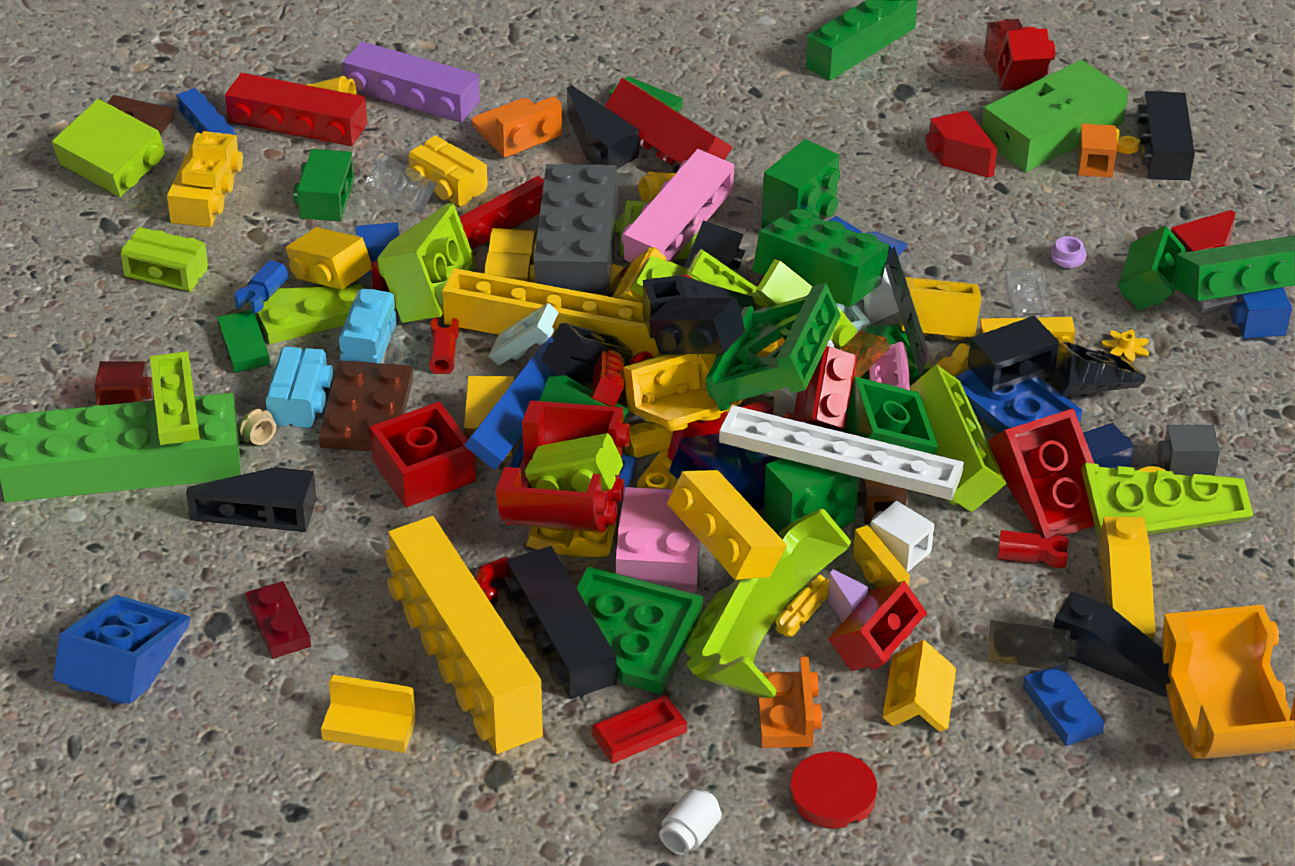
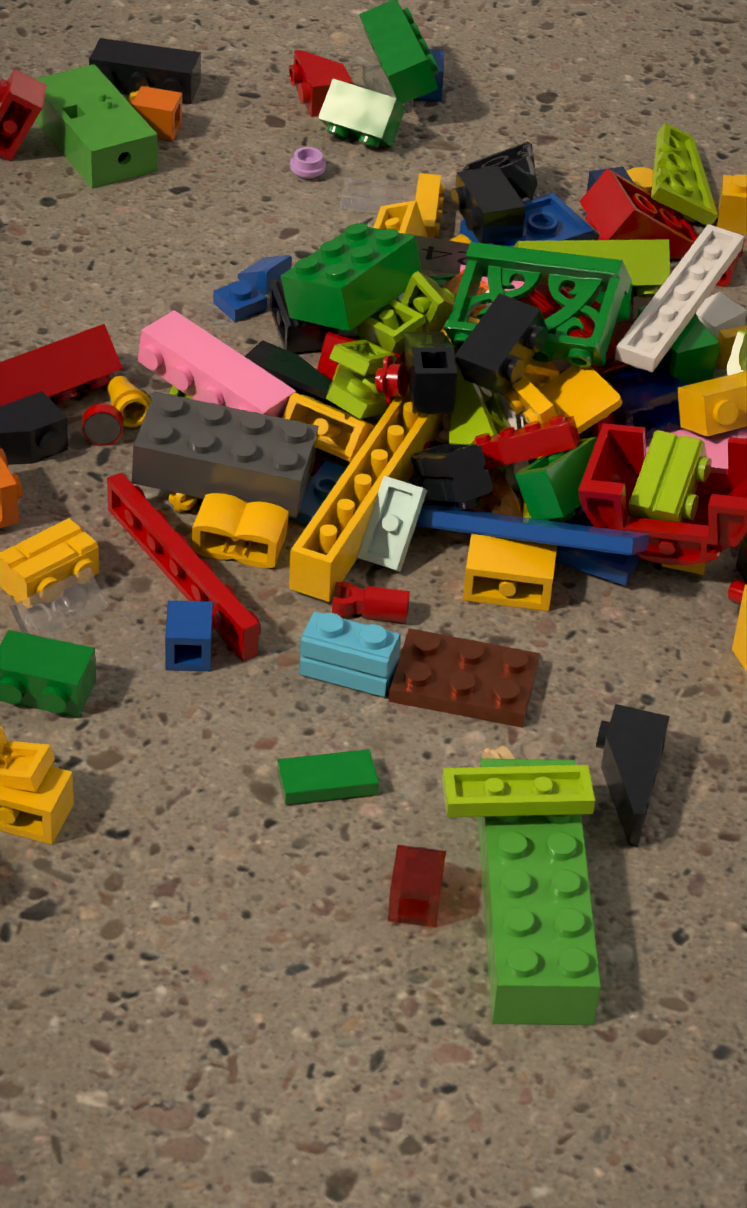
camera: 85 degrees left, 0 degrees up
(164, 259) = (159, 836): lime brick -> none
(262, 286) = (255, 736): blue bar -> none
(298, 386) = (438, 724): medium azure brick -> none
(305, 311) = (277, 716): lime wing -> none
(328, 258) = (212, 672): yellow brick -> none
(422, 262) = (270, 575): lime slope -> none
(422, 454) = (583, 621): red brick -> none
(627, 176) = (102, 424): none -> tile
(801, 180) = (194, 285): green brick -> none
(961, 144) = (120, 189): red slope -> none
(1126, 344) = (445, 160): yellow plant -> none
(1189, 450) = (612, 145): dark grey brick -> none

